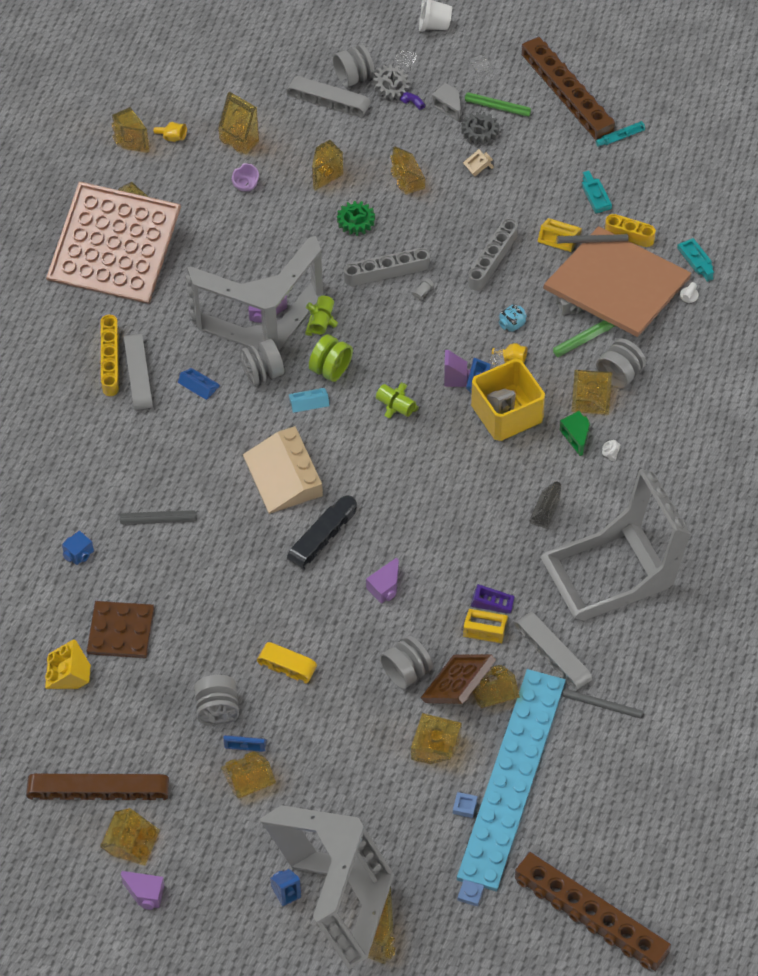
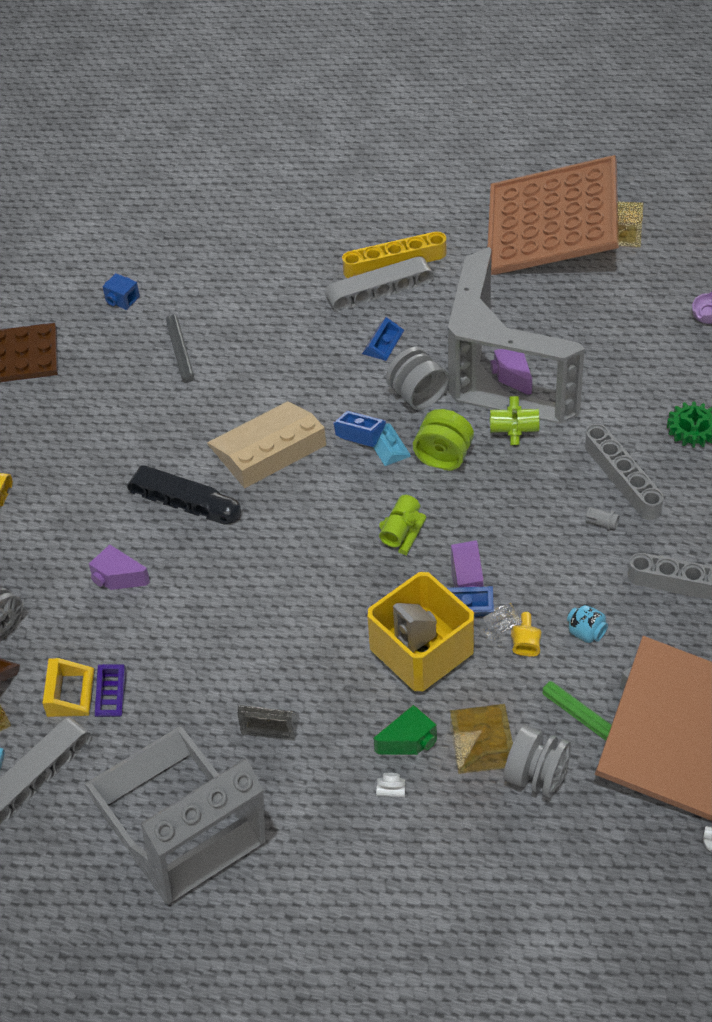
camera: 80 degrees right, 5 degrees down
(293, 410) = (359, 428): none -> blue slope

